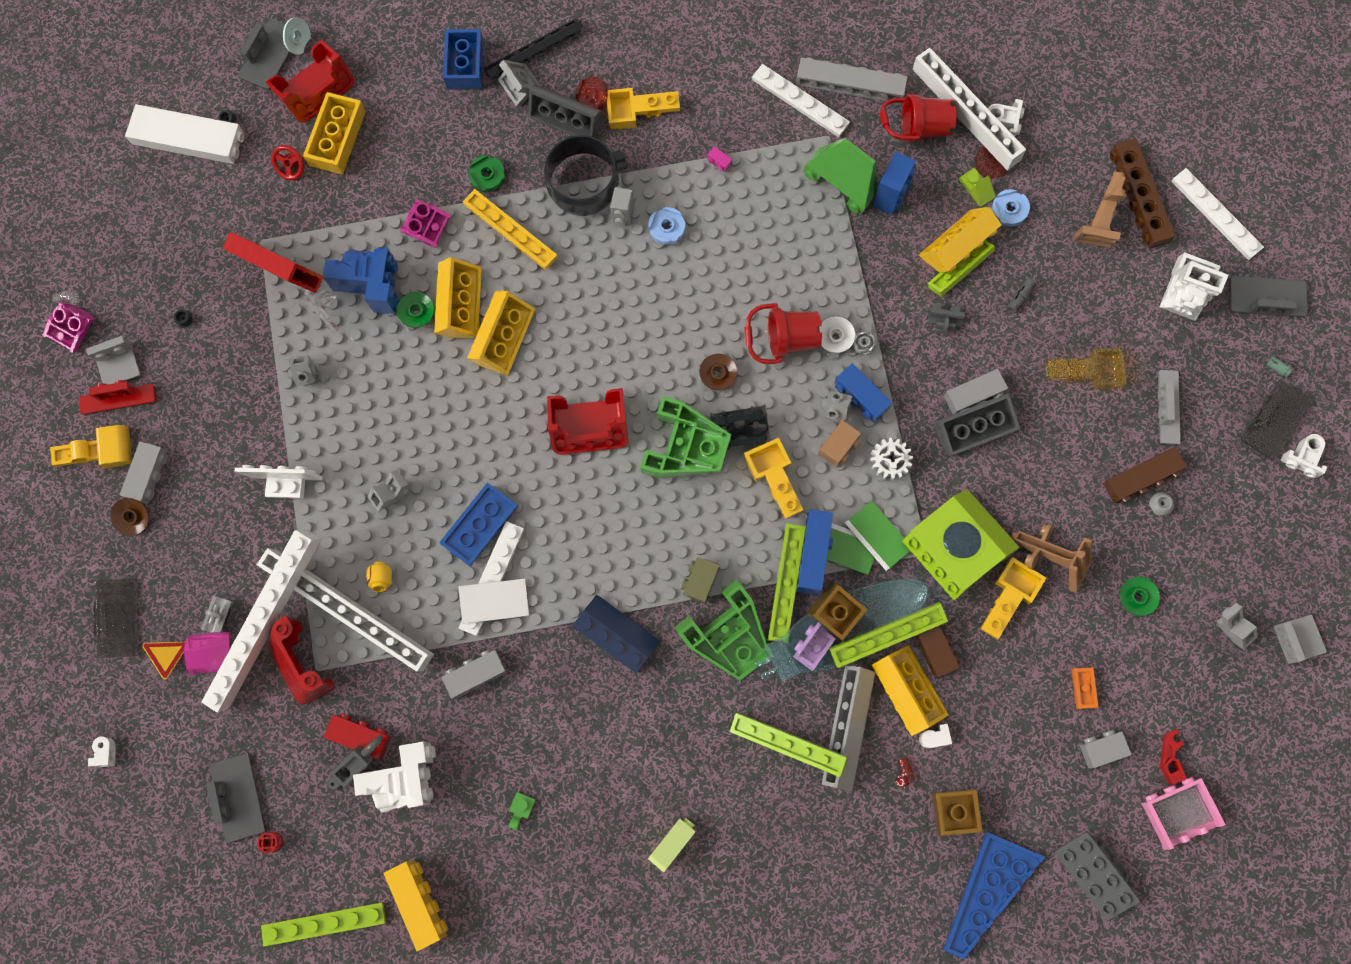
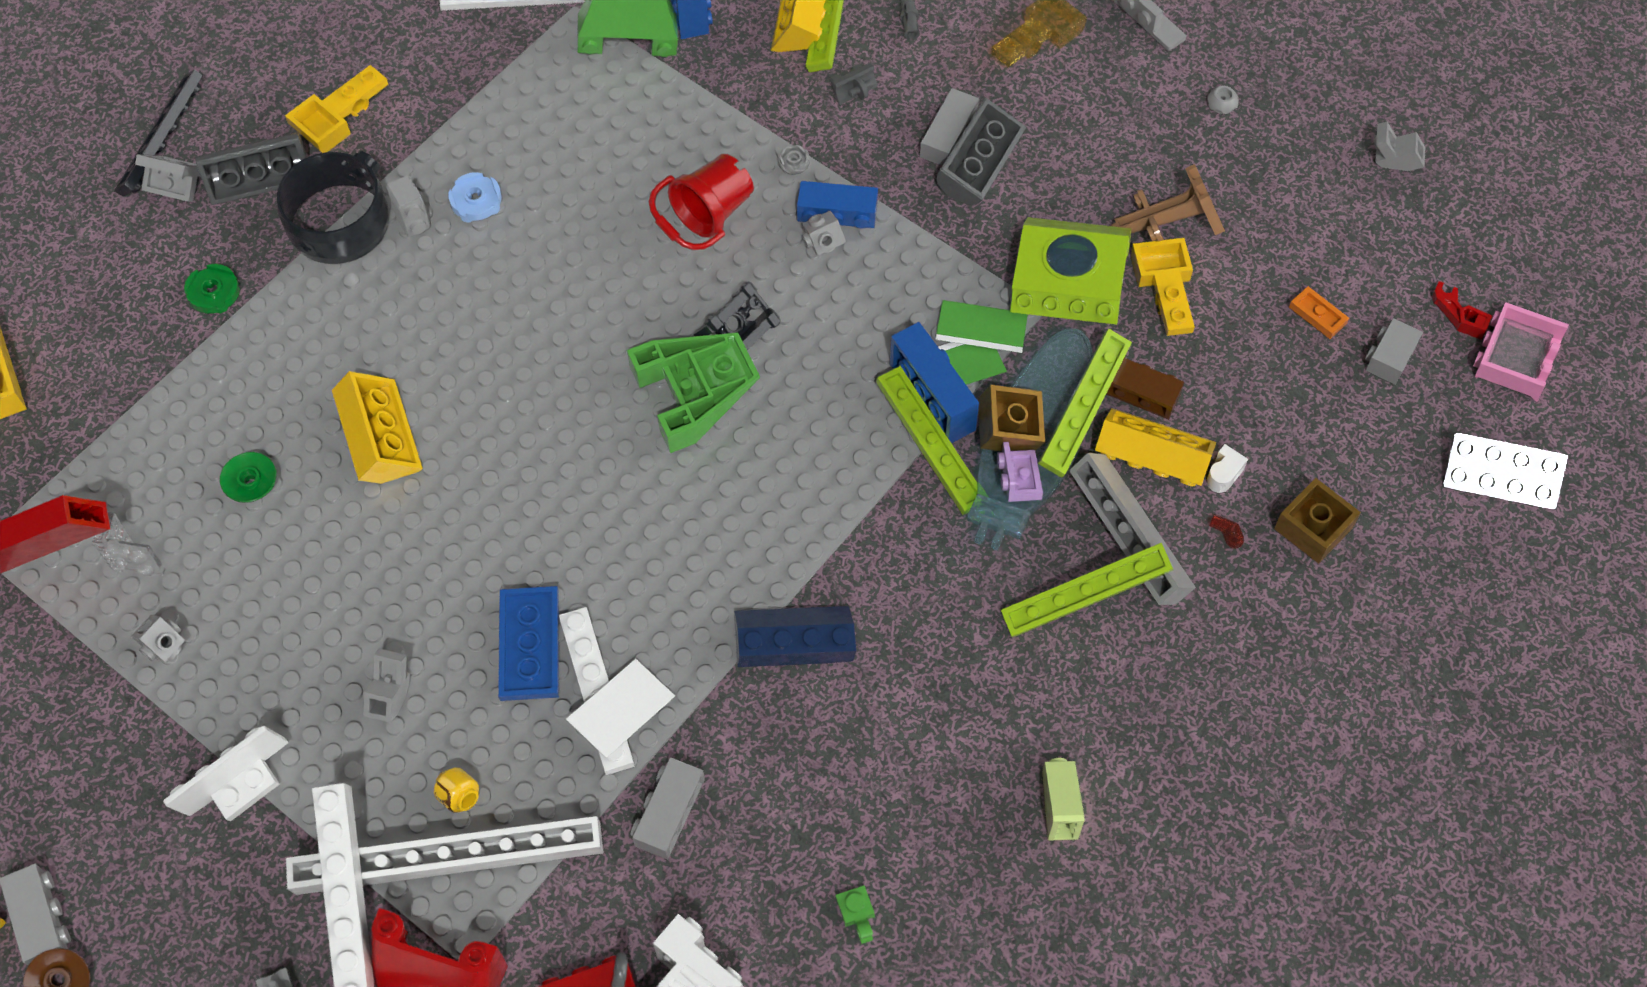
camera: 45 degrees left, 15 degrees down
(366, 274) = (156, 480): blue brick -> none
(425, 223) = (180, 381): dark pink slope -> none
(457, 299) = (291, 431): yellow slope -> none
(463, 59) = (83, 192): blue brick -> none
(510, 229) = (292, 320): yellow plate -> none
(587, 425) = (567, 447): red windscreen -> none
(592, 92) = (269, 123): clear red tile -> none
(700, 580) = (837, 506): olive brick -> none
(719, 159) = (475, 98): dark pink piece -> none
(719, 363) = (661, 284): reddish brown dish -> none
(732, 639) = (926, 538): bright green wedge -> none
(769, 462) = (805, 335): yellow plate -> none
(839, 444) = (858, 267): medium nougat brick -> none
(840, 327) = (765, 165): white dish -> none
(882, 459) = (925, 243): white gear -> none
(993, 883) = (1420, 567): blue wing -> none
(1144, 475) = (1182, 85): reddish brown brick -> none
(1146, 589) = (1285, 183): green dish -> none
(1300, 639) = (1461, 122): light grey bracket -> none

